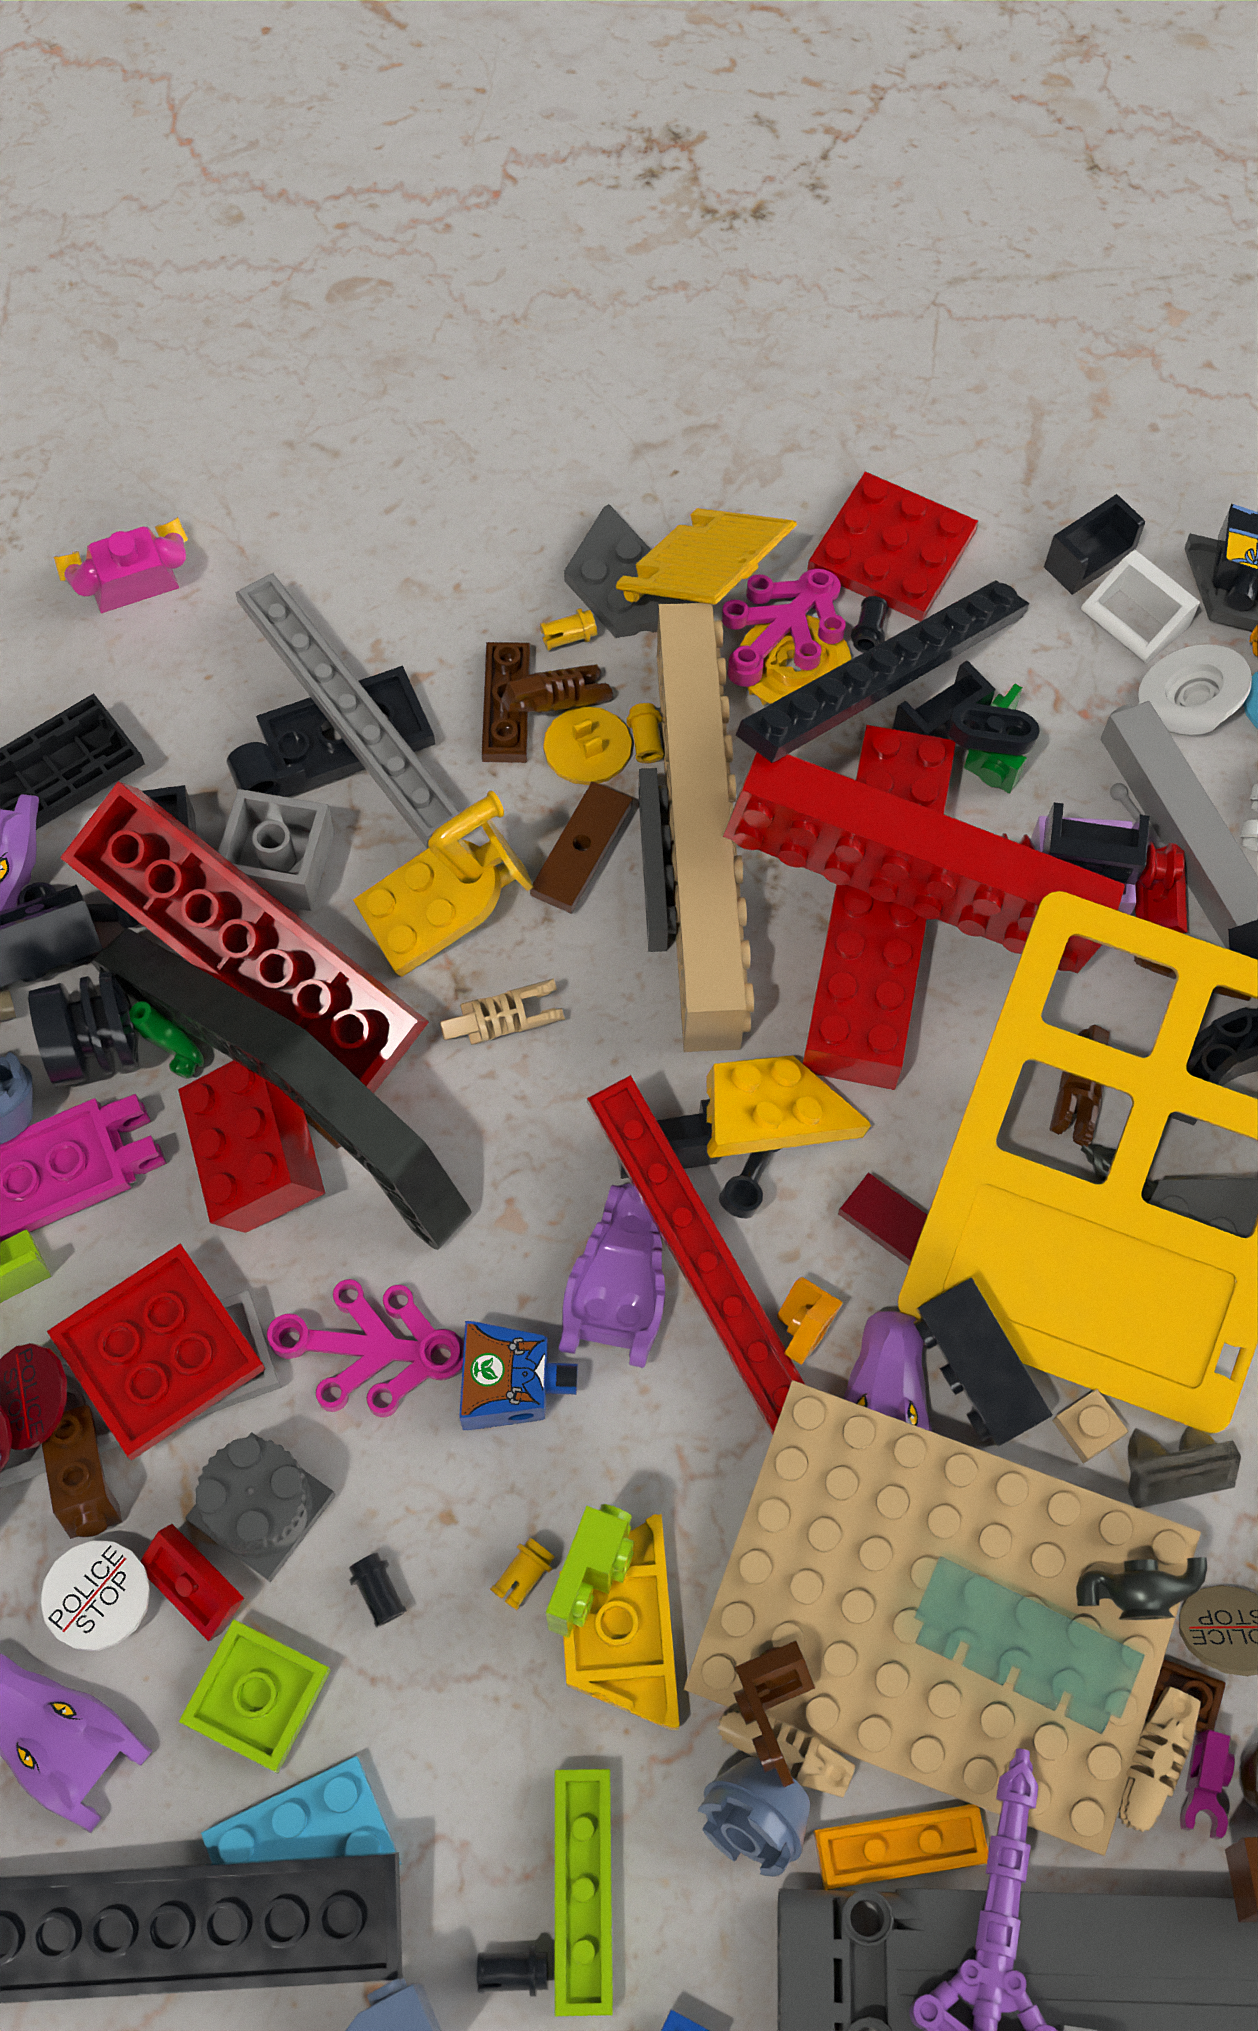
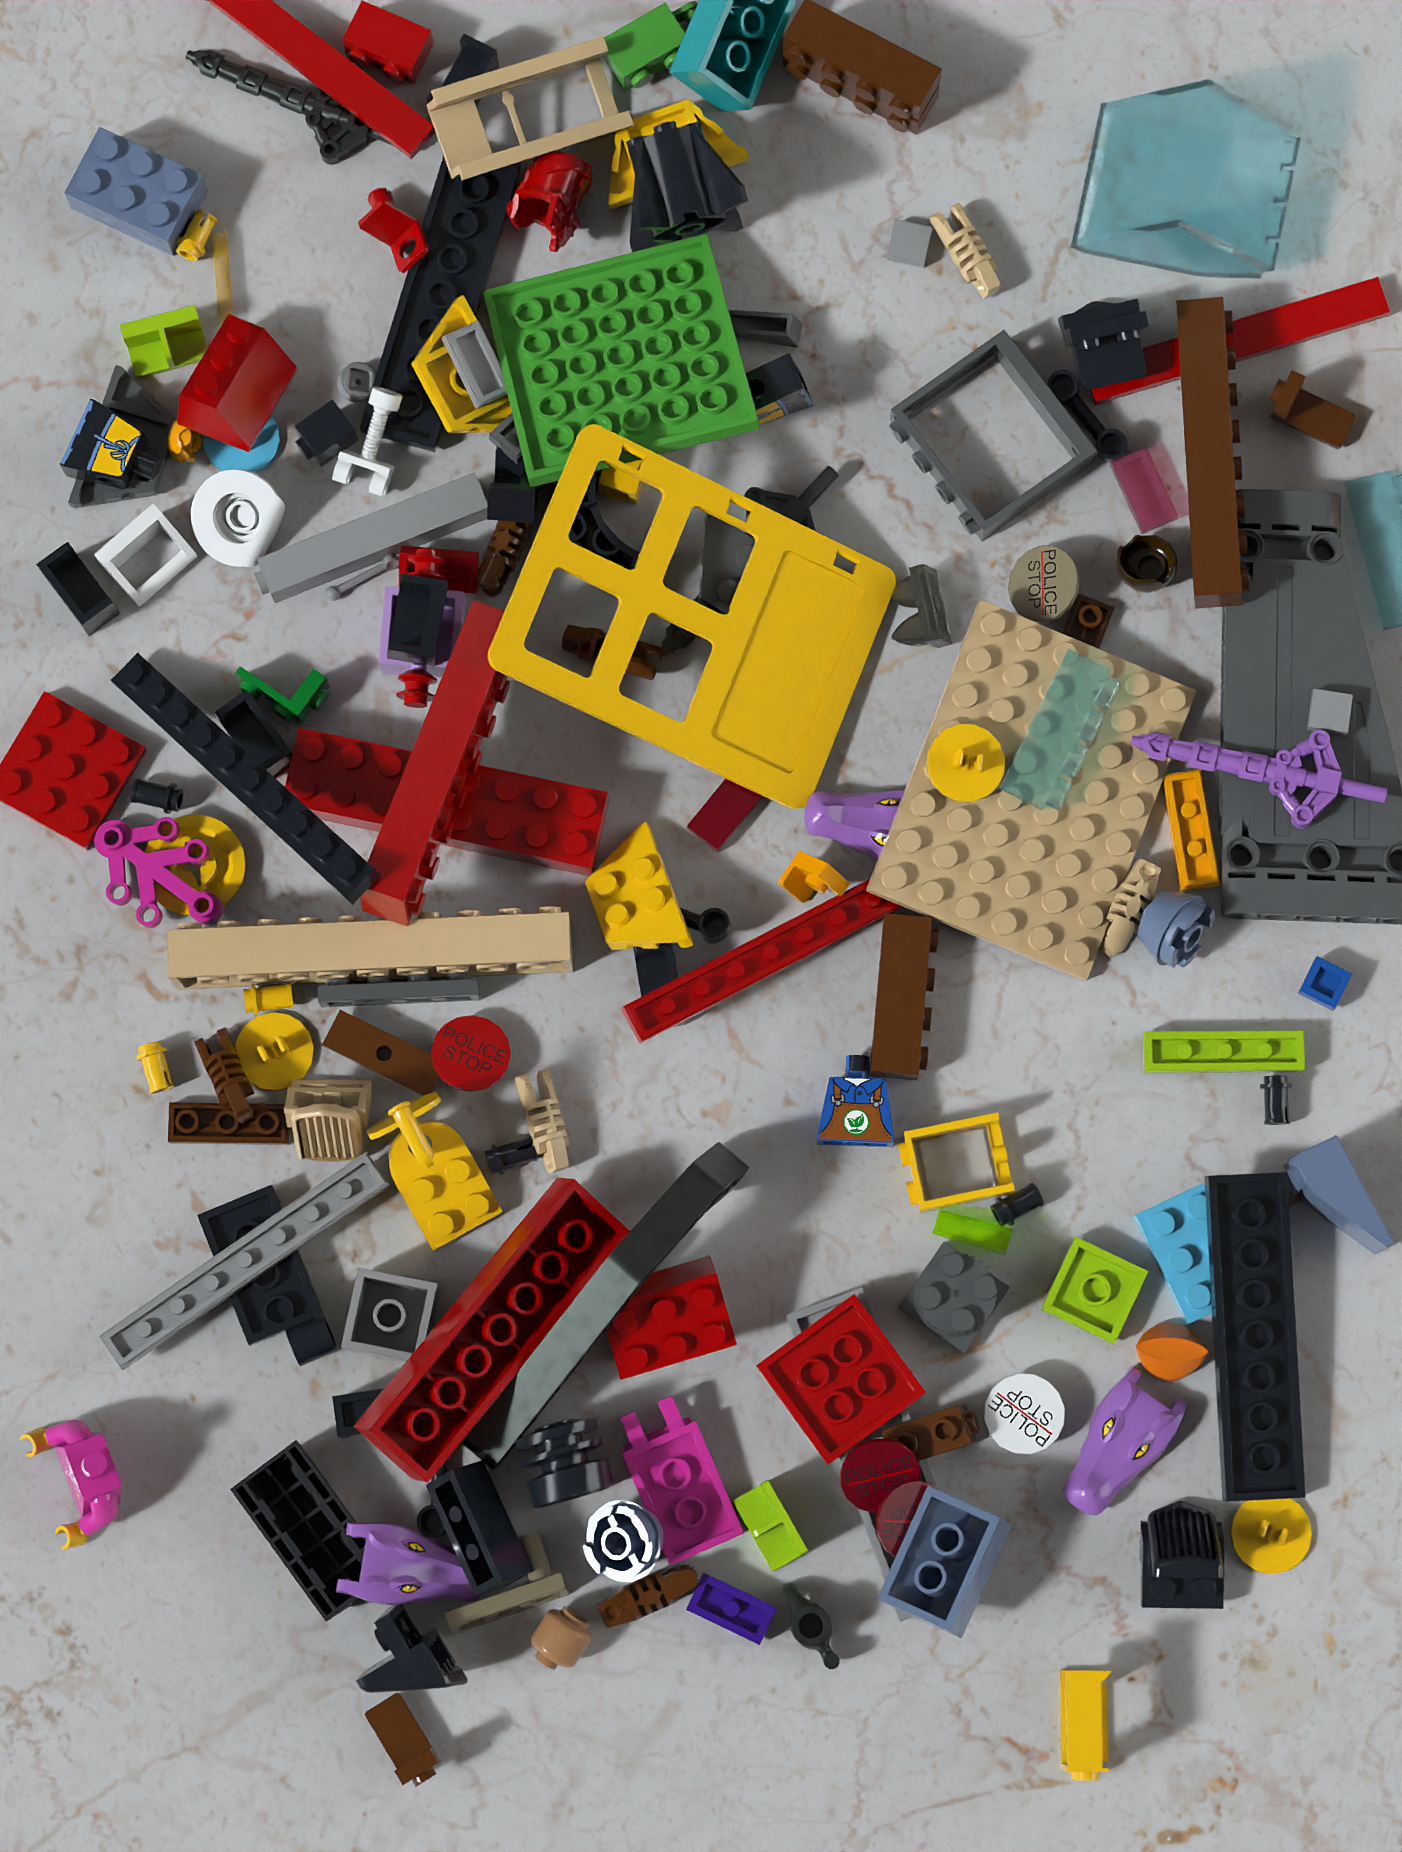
camera: 85 degrees left, 15 degrees up
(167, 1036) = (566, 1397): green arm -> none
(168, 1805) = (1171, 1351): none -> orange piece
(191, 1582) = (1013, 1343): red plate -> none
(344, 1532) = (972, 1232): none -> clear neon green piece
(374, 1348) = (830, 1214): dark pink plant -> none
(433, 1508) = (956, 1163): none -> window
(460, 975) = (510, 1155): none -> black pin
(518, 774) = (329, 1118): none -> tan piece
(525, 1570) = (1004, 1097): yellow pin -> none
(581, 932) = (470, 1053): none -> red piece
(594, 1560) = (999, 1034): lime plate -> none
(604, 557) = (99, 1014): dark grey wing -> none
(618, 1281) = (778, 1022): medium lavender animal -> none
(627, 1638) = (1040, 1023): yellow wing -> none
(655, 1435) = (901, 997): none -> reddish brown brick
(705, 558) = (98, 936): yellow window -> none
(766, 1682) = (1085, 912): reddish brown bracket -> none
(971, 1508) = (965, 763): none -> yellow piece
(981, 1364) = (849, 748): black brick -> none
(992, 729) = (290, 697): black plate -> none
(1090, 1426) = (890, 671): tan plate -> none
(1142, 1589) = (1026, 645): pearl dark grey piece -> none
(1159, 1758) = (1133, 646): tan hinge -> none
(1208, 1771) = (1140, 613): magenta plate -> none

